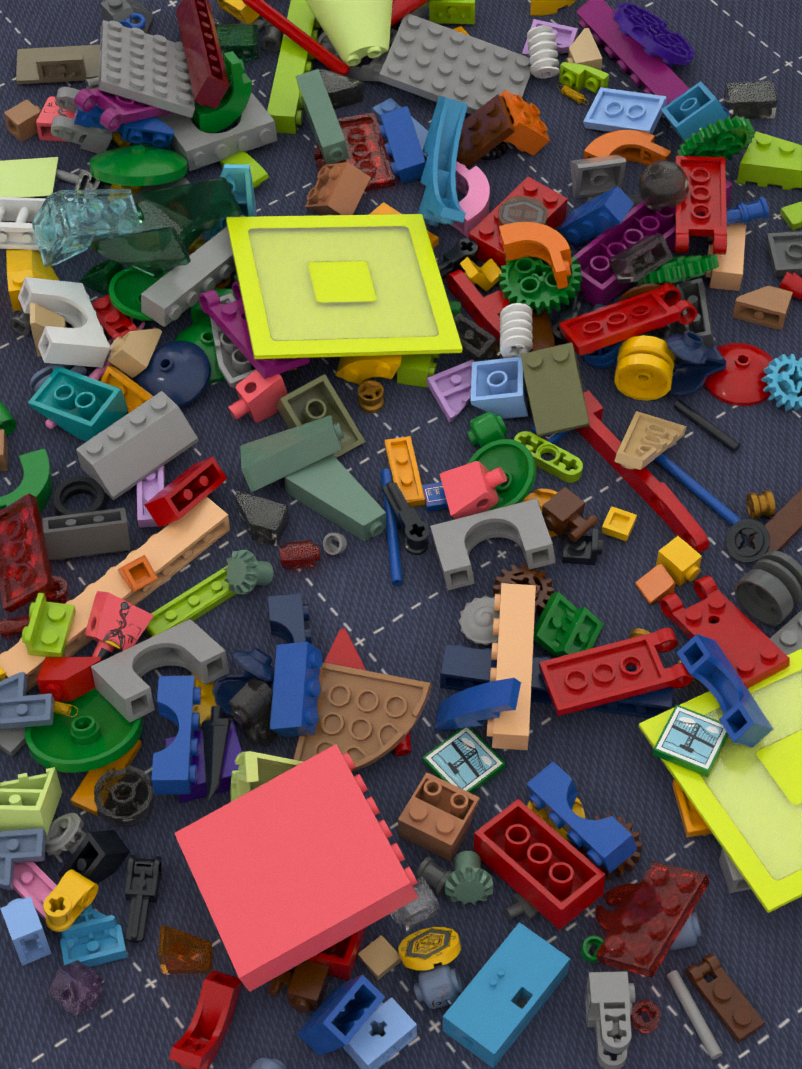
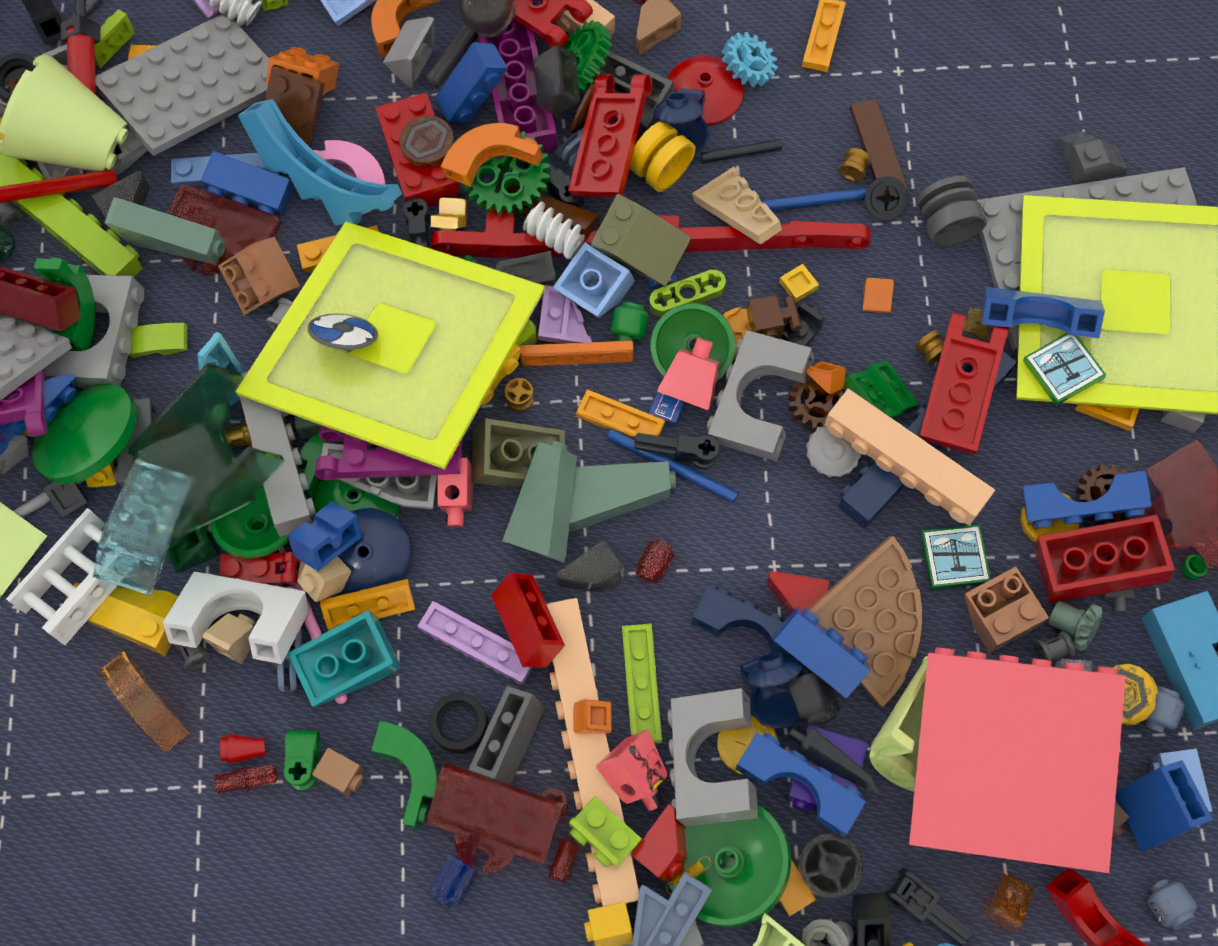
camera: 55 degrees left, 15 degrees up
(136, 445) = (442, 633): light grey slope -> none
(156, 331) = (326, 538): none -> blue brick
(246, 572) = (651, 619): sand green gear -> none
(318, 246) = (342, 331): none -> shield
(333, 548) = (663, 527): light grey hinge -> none
(434, 412) = (576, 353): none -> orange tile
(477, 704) = (937, 509): blue slope -> none
(543, 576) = (828, 376): none -> orange slope
(572, 94) = (291, 9): yellow piece -> none
(680, 561) = (870, 262): yellow brick -> none
(740, 639) = (974, 270): red hinge -> none

